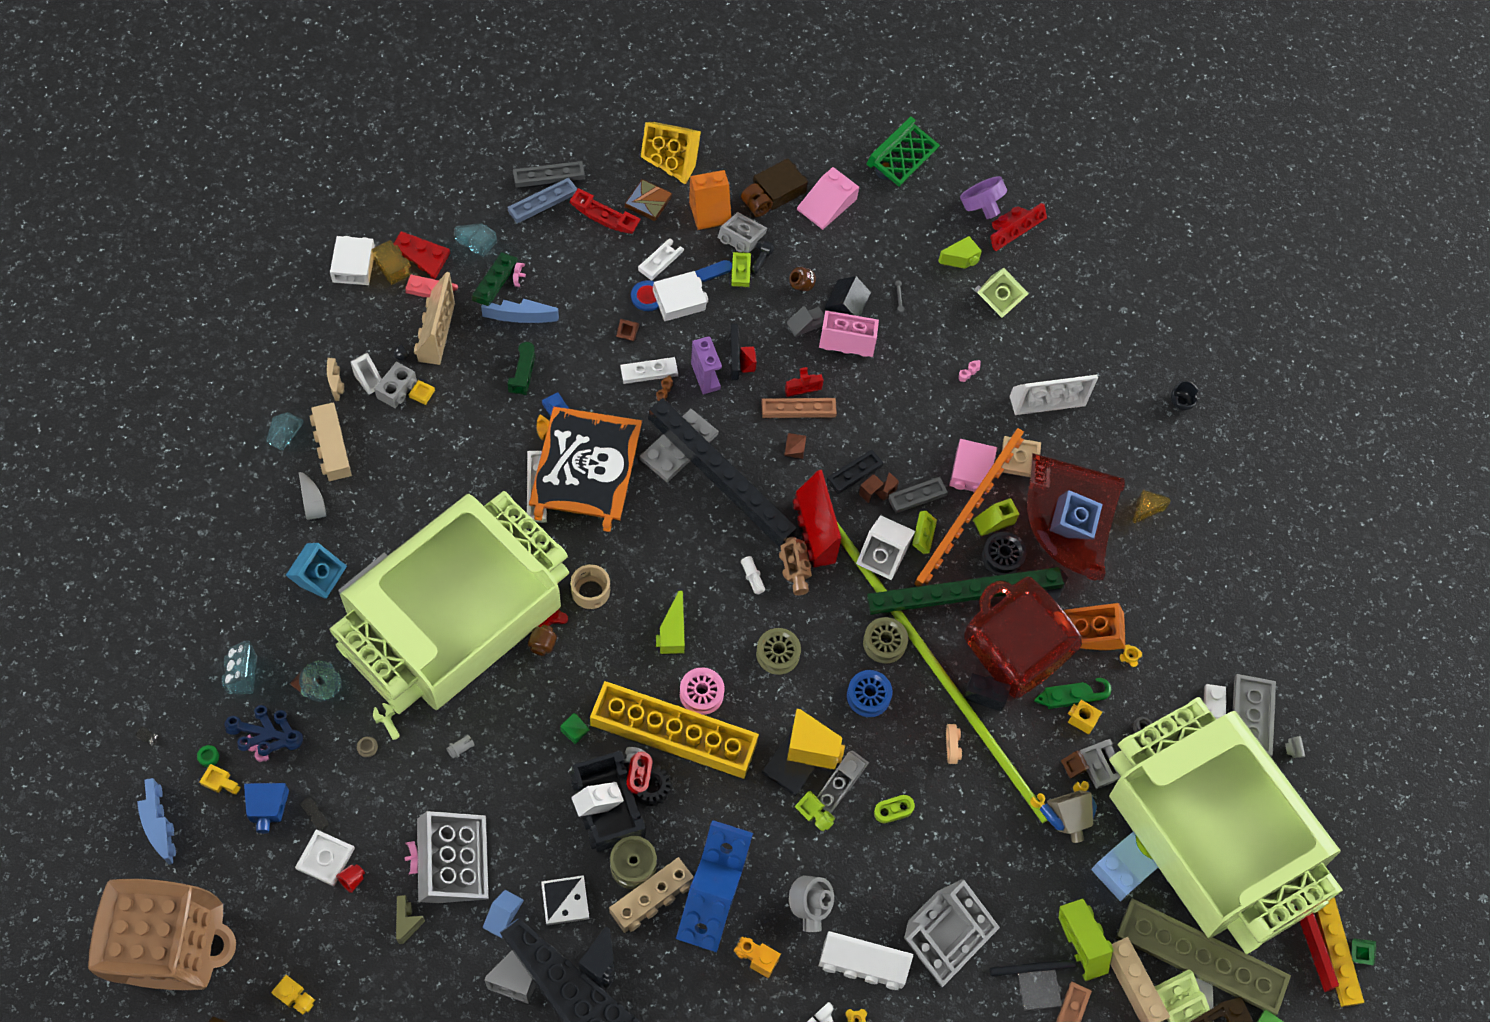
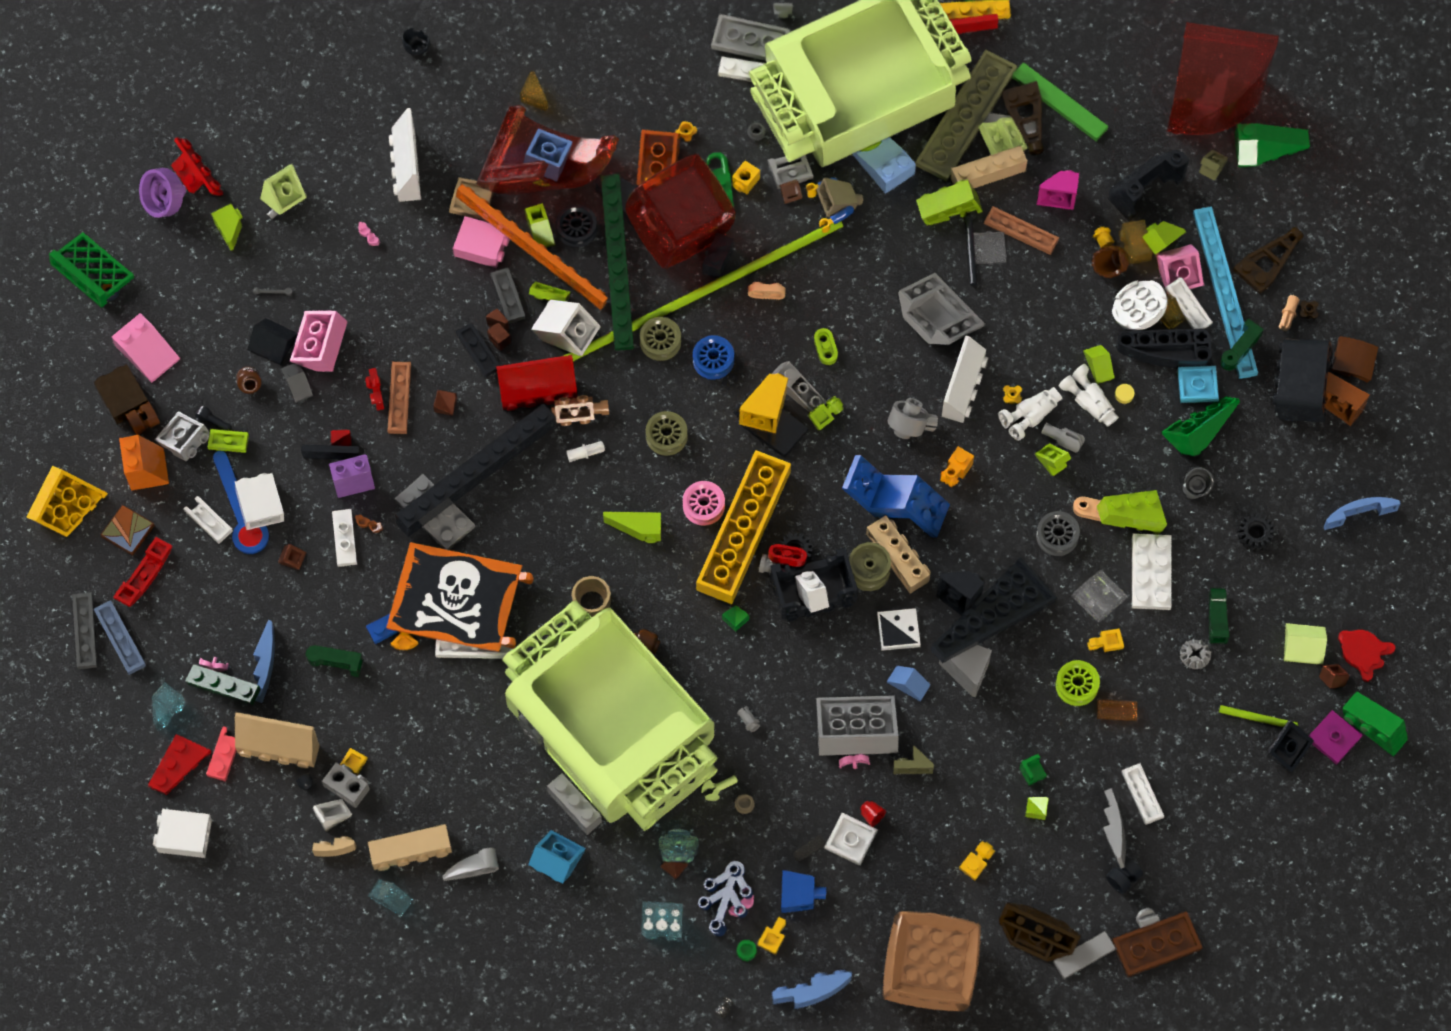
camera: 80 degrees left, 5 degrees up
(391, 262) = (189, 792): clear yellow brick -> none

